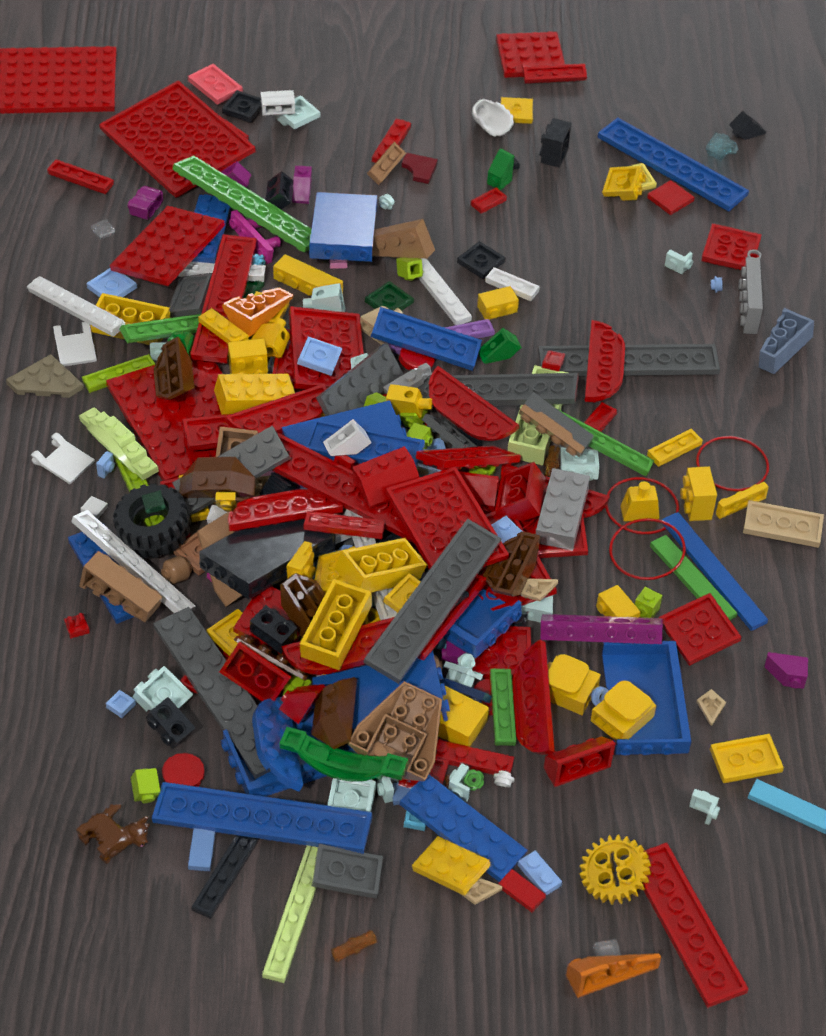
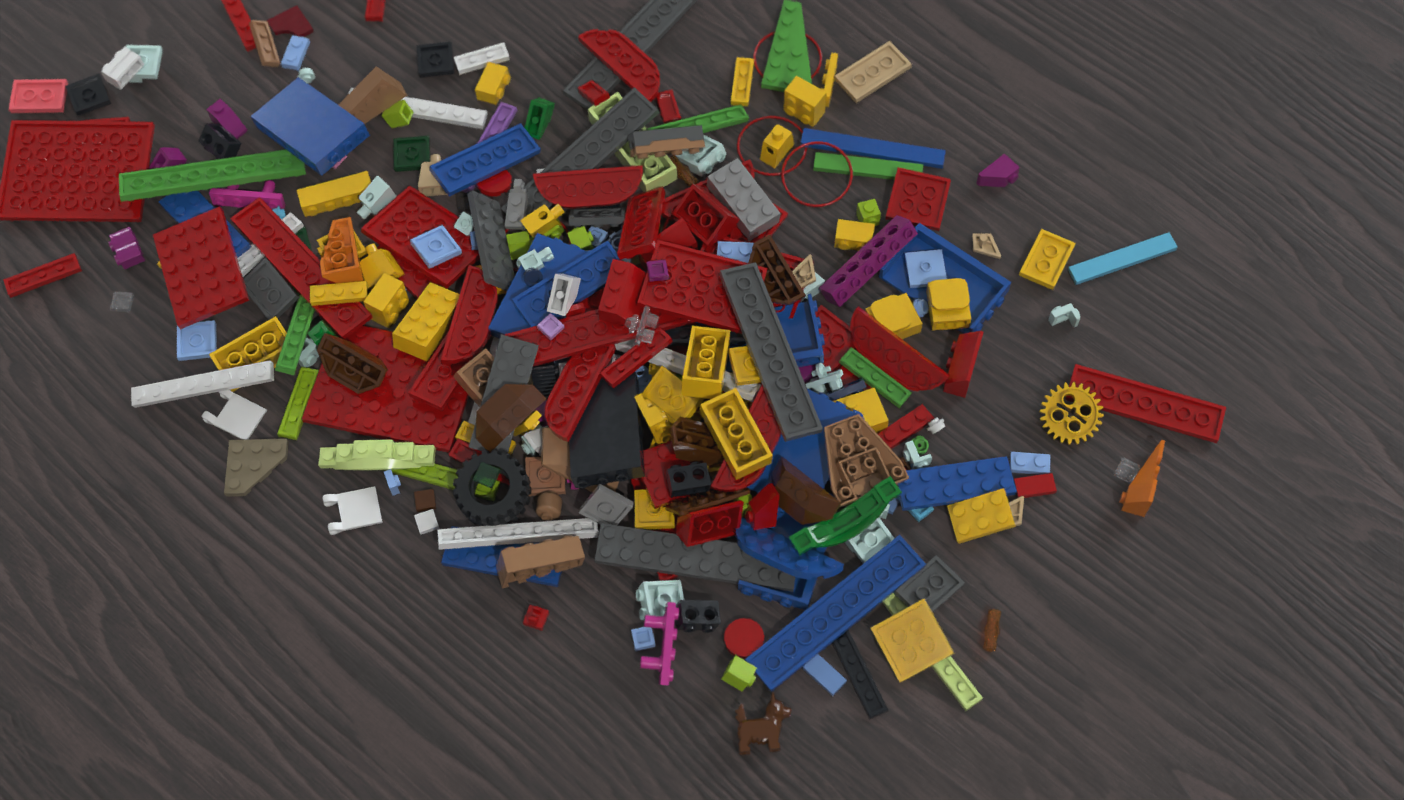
camera: 45 degrees left, 15 degrees up
(111, 495) = (425, 500): none -> reddish brown tile
(132, 713) = (663, 662): none -> dark pink plate
(205, 599) = (606, 506): none -> light grey plate
(285, 886) = (912, 640): none -> yellow plate
(314, 455) = (550, 326): none -> lavender tile
(346, 416) = (532, 276): none -> dark blue tile
(361, 411) = (535, 259): none -> light aqua plate
(369, 505) = (643, 334): none -> clear hips
(399, 185) = (295, 52): none -> light blue plate
(426, 482) = (657, 270): none -> magenta tile
(643, 674) = (924, 267): none -> light blue plate
(739, 458) = (788, 51): none -> bright green wing

